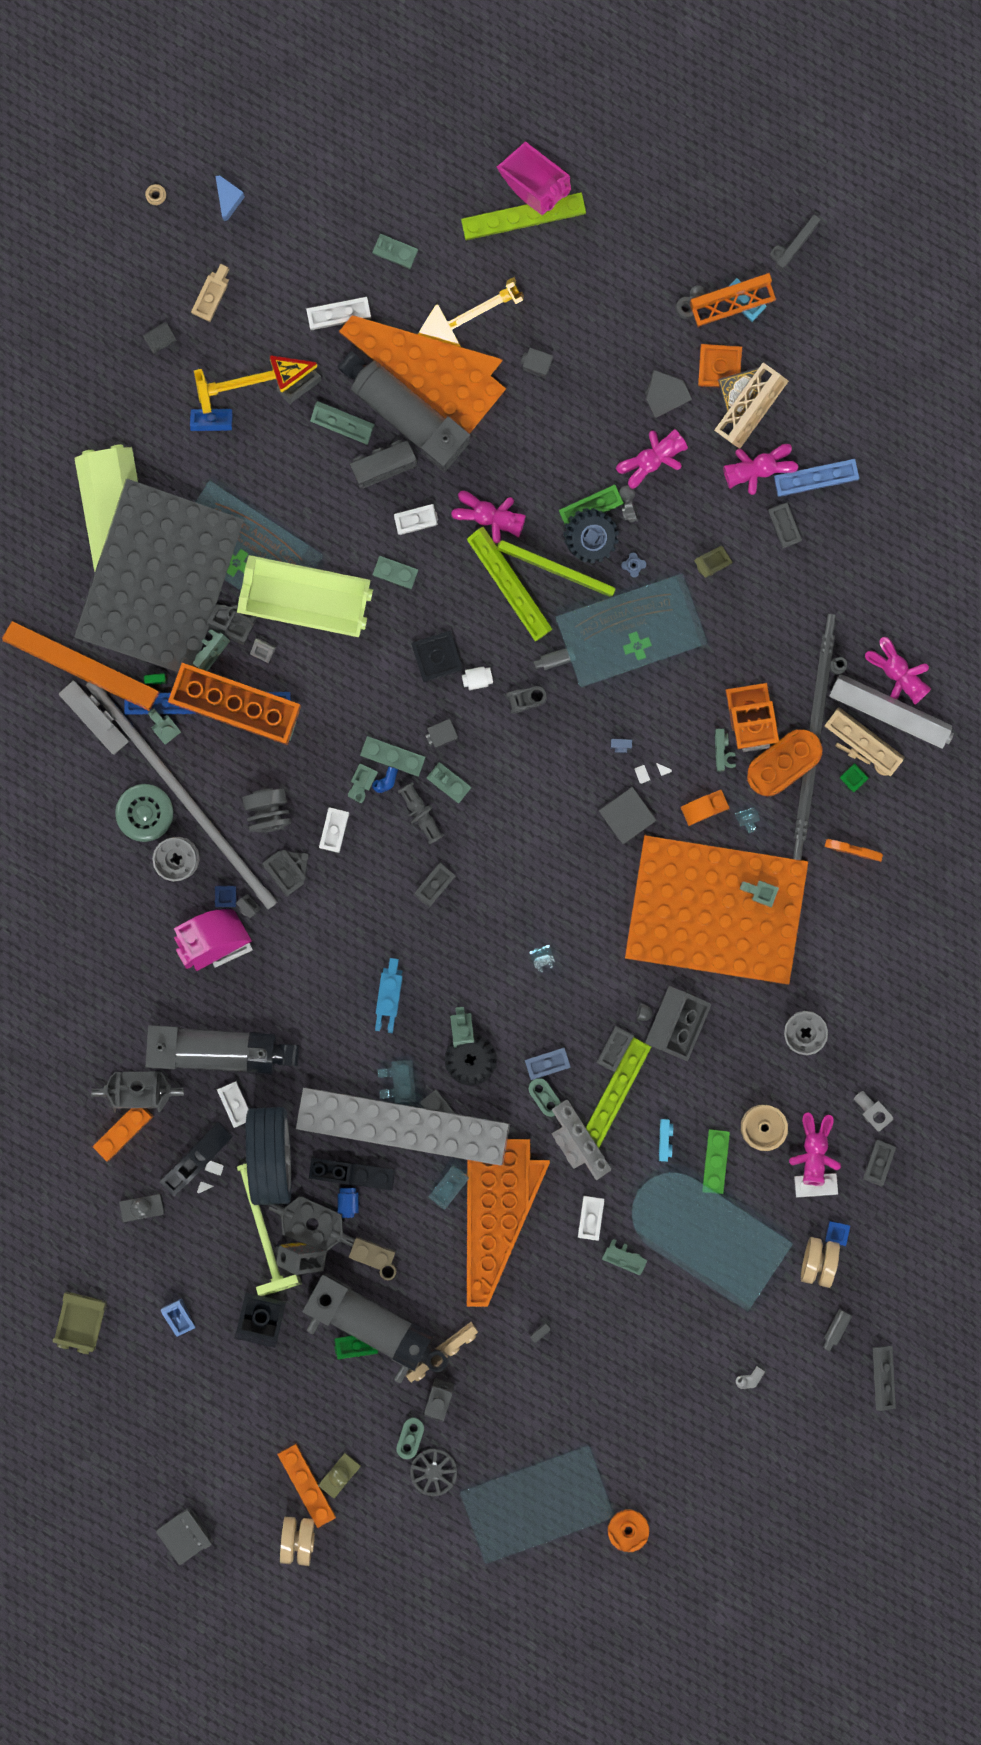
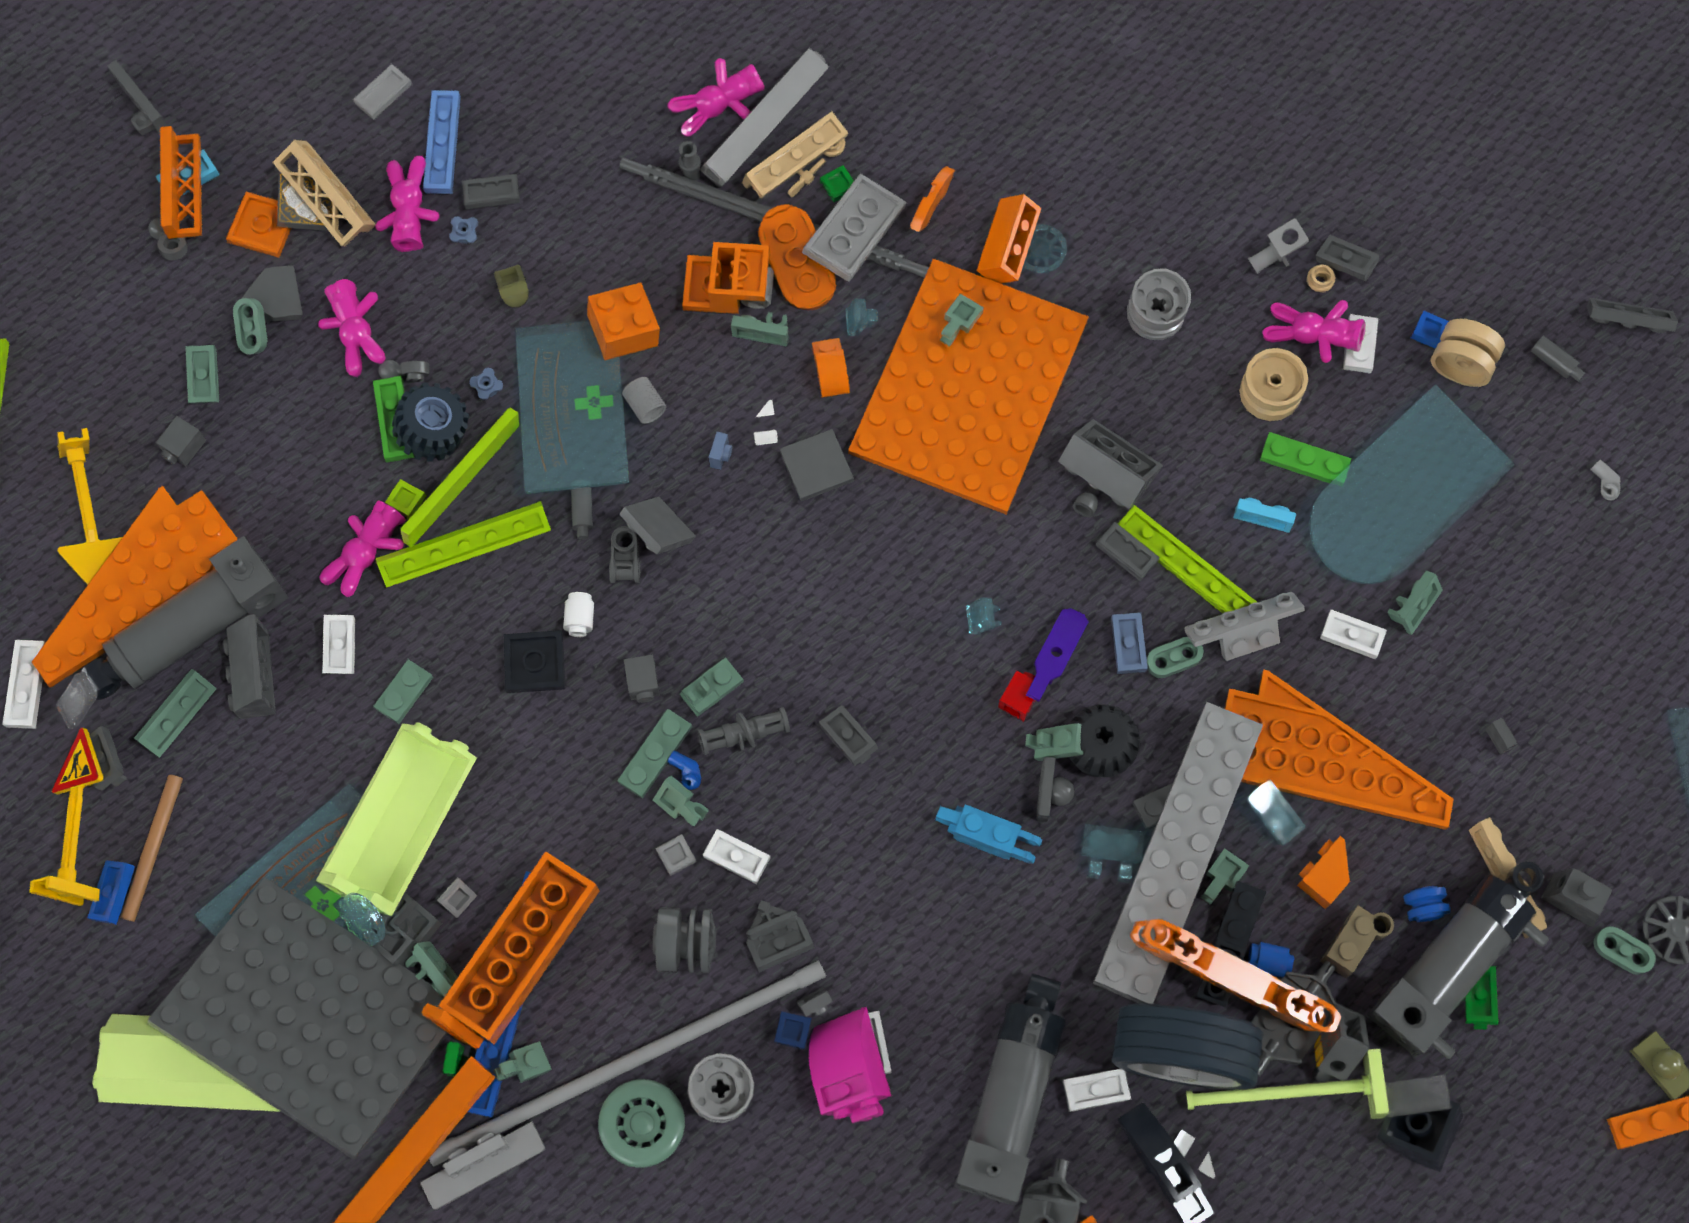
camera: 80 degrees left, 15 degrees down
(175, 666) = (452, 1026): none -> orange tile
(230, 593) = (362, 918): none -> clear light blue wheel
(265, 436) = (151, 848): none -> medium nougat piece
(276, 1313) = (1417, 1095): none -> clear tile
(323, 1178) = (1234, 975): none -> orange piece
(326, 789) = (676, 855): none -> light grey tile
(333, 354) = (76, 700): none -> clear tile
(400, 1161) = (1225, 873): none -> sand green plate
(409, 1300) = (1427, 904): none -> blue wheel
(414, 1230) = (1329, 875): none -> orange slope
(429, 1033) = (1055, 791): none -> dark grey tile
(492, 996) = (1014, 698): none -> red brick
(533, 533) = (405, 498): none -> lime plate
(537, 1018) = (1062, 640): none -> dark purple piece
(553, 716) = (657, 525): none -> dark grey tile
(590, 362) = (202, 374): none -> sand green plate
(636, 384) = (250, 326): none -> sand green plate
(646, 681) = (644, 400): none -> light grey piece
(701, 650) = (623, 321): none -> orange brick
(744, 510) = (467, 236): none -> sand blue plate
(816, 799) = (854, 227): none -> light grey tile
(833, 913) = (1009, 239): none -> orange brick
(836, 938) = (1041, 250): none -> clear light blue wheel
(848, 421) = (382, 91): none -> light grey tile
(861, 1154) = (1322, 271): none -> tan plate

